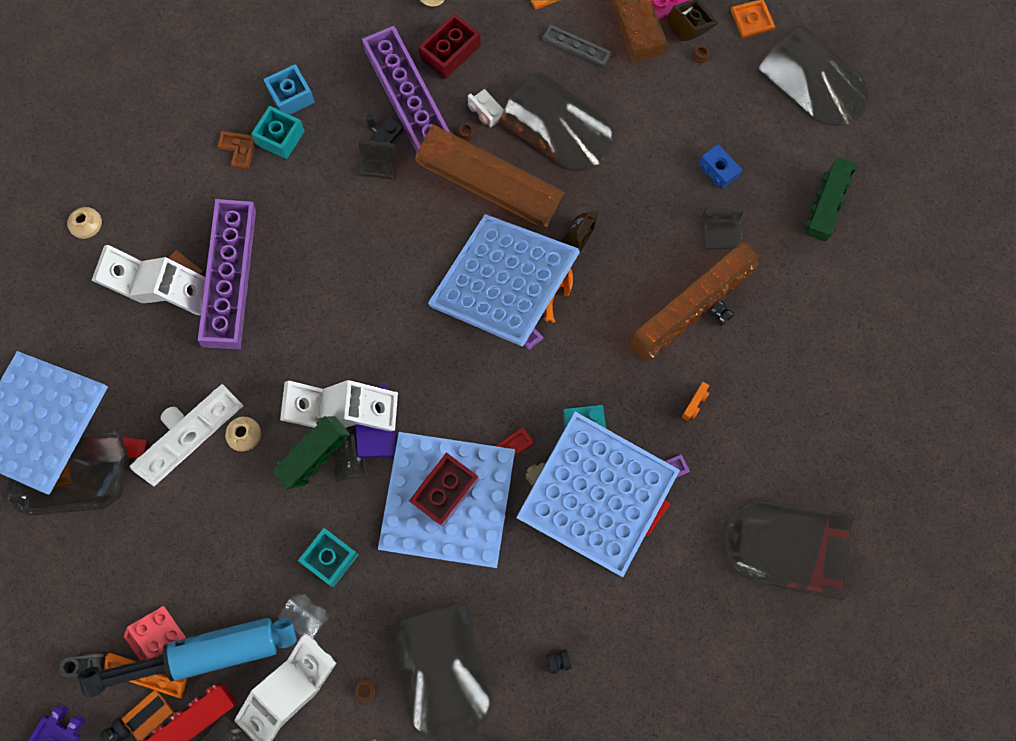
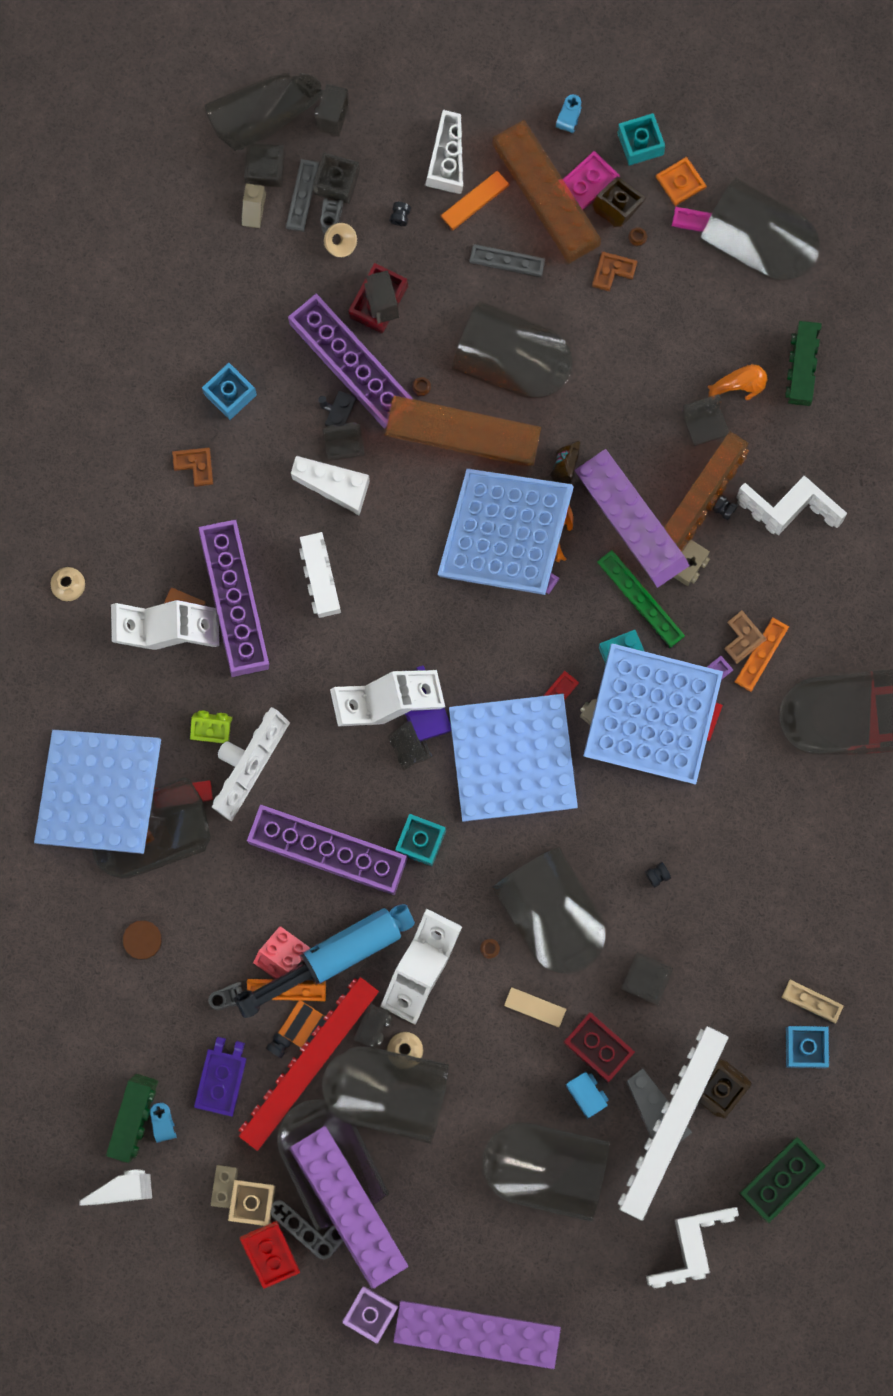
camera: 10 degrees left, 5 degrees up
(23, 581) = (142, 940): none -> reddish brown tile
(165, 389) = (210, 727): none -> lime bracket
(233, 541) = (327, 849): none -> medium lavender brick
(249, 440) = (303, 758): tan piece -> none
(278, 132) = (233, 439): teal brick -> none
(305, 615) = (415, 898): clear bracket -> none
(310, 453) = (377, 747): dark green wedge -> none
(316, 273) = (320, 575): none -> white wedge
(358, 195) = (334, 483): none -> white wedge
(444, 489) = (510, 749): dark red brick -> none
(449, 38) = (381, 297): none -> clear smoke brick
(486, 107) = (435, 354): white bracket -> none
(617, 379) = (641, 599): none -> green tile
(629, 298) = (632, 518): none -> medium lavender brick
(668, 73) = (612, 265): none -> dark orange tile
(678, 346) = (699, 556): none -> dark tan brick
(692, 409) = (725, 594): orange plate -> none
(713, 442) = (748, 638): none -> medium nougat tile
(719, 158) = (682, 347): blue brick -> none
(722, 464) = (761, 655): none -> orange tile
(752, 50) = (690, 219): none -> dark pink plate
(773, 198) = (749, 378): none -> orange hair
(774, 333) = (790, 506): none -> white bracket

